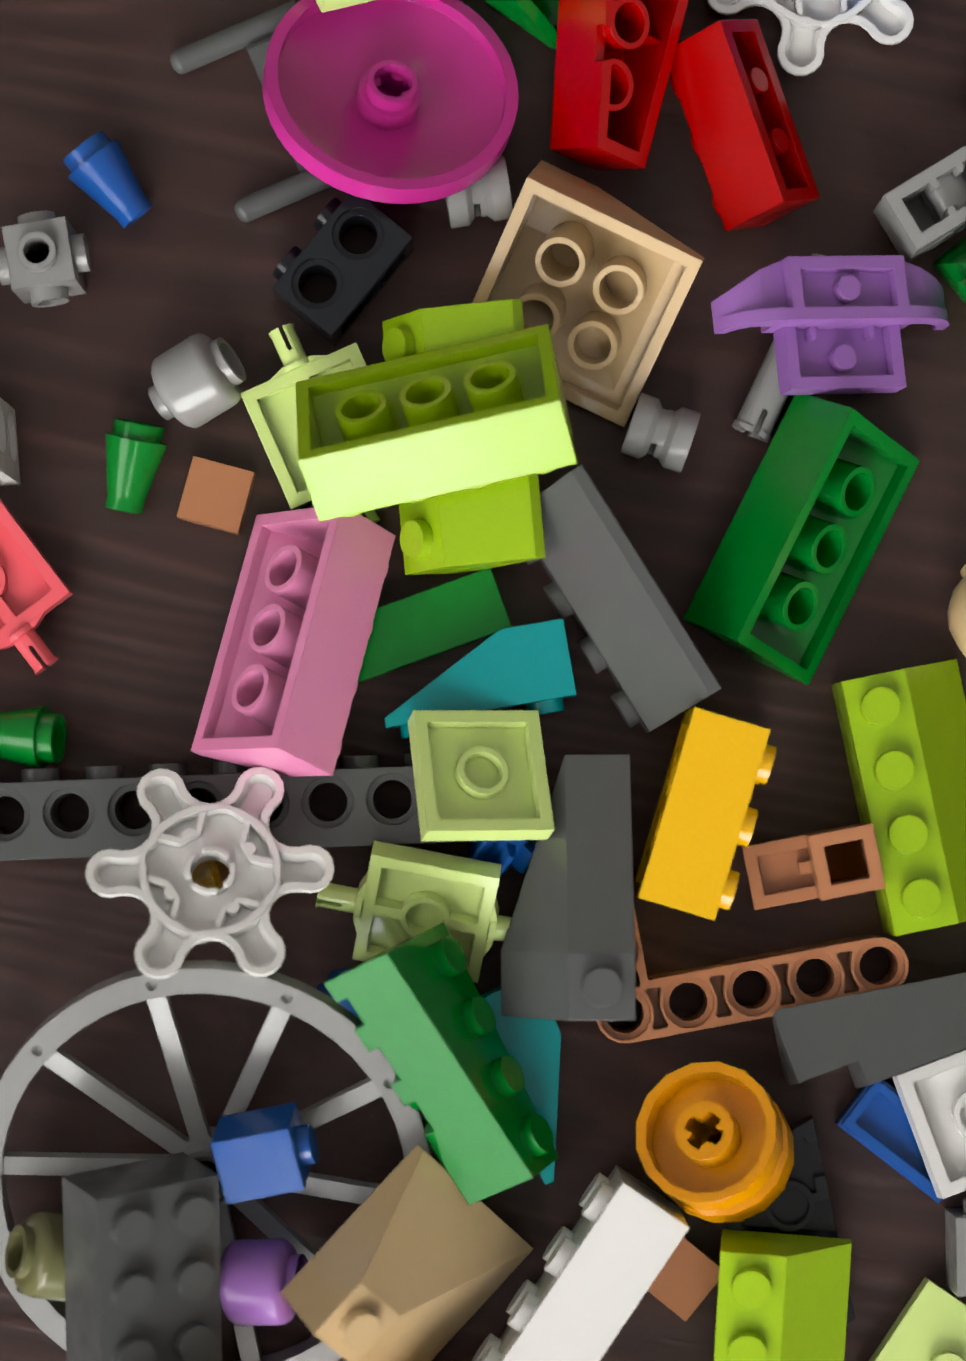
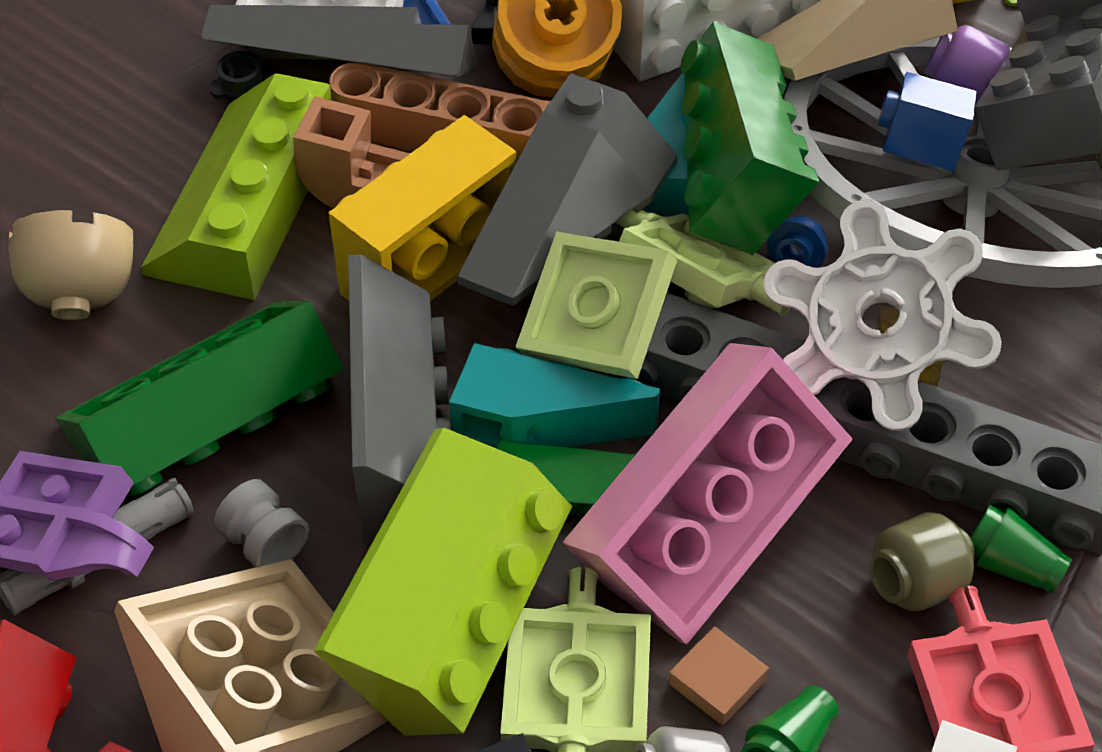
camera: 150 degrees left, 35 degrees down
(90, 676) = (921, 562): none -> olive head
(433, 423) = (466, 564): lime slope -> none

